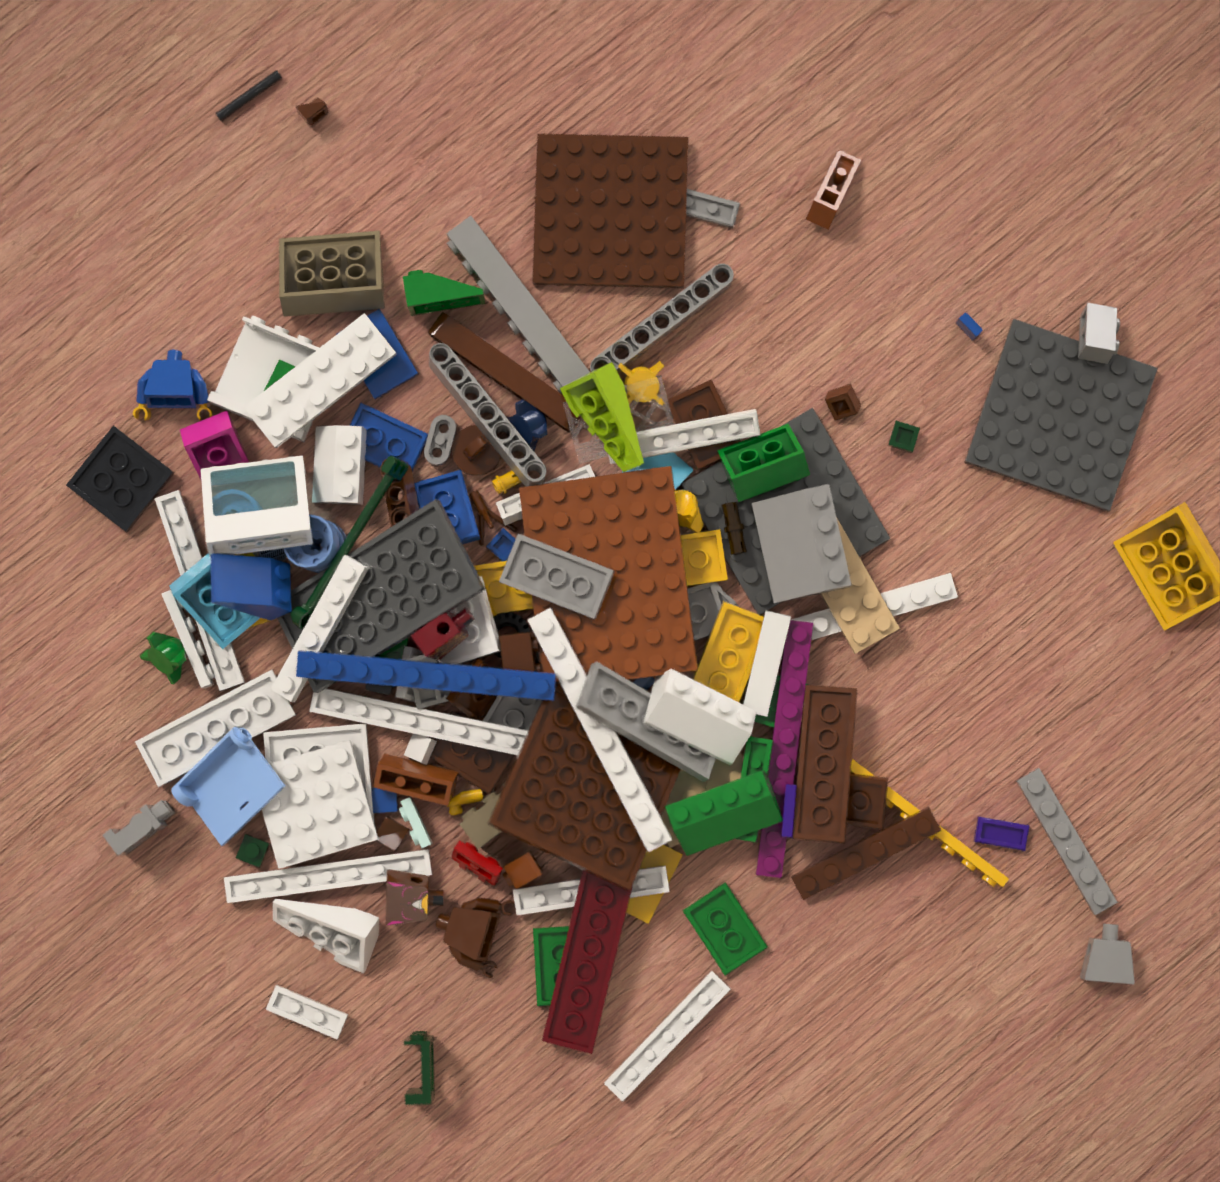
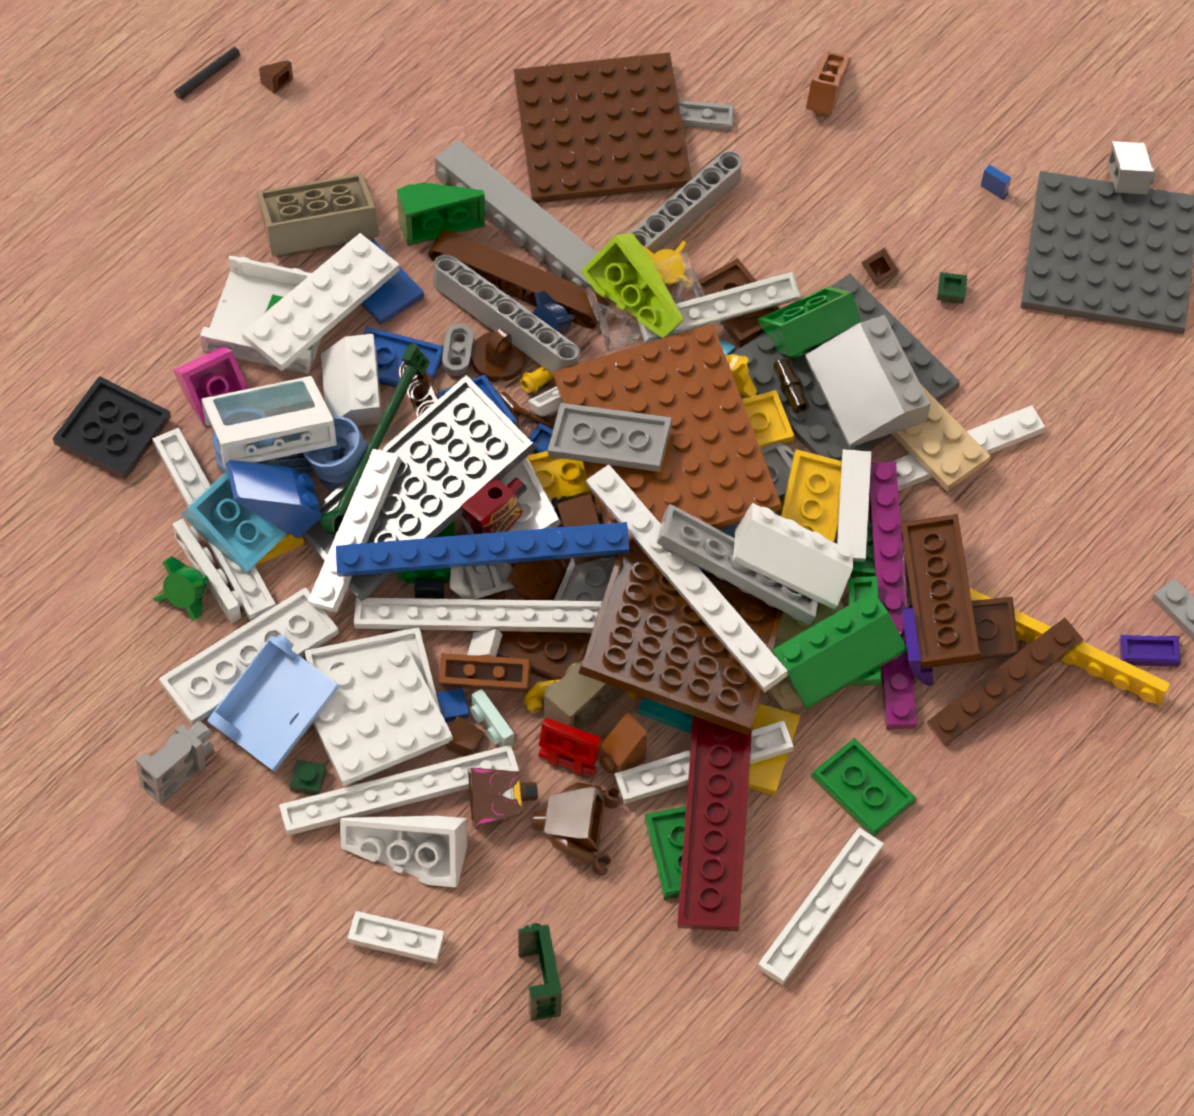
camera: 10 degrees left, 25 degrees down
(171, 385) = (159, 329): blue torso -> none

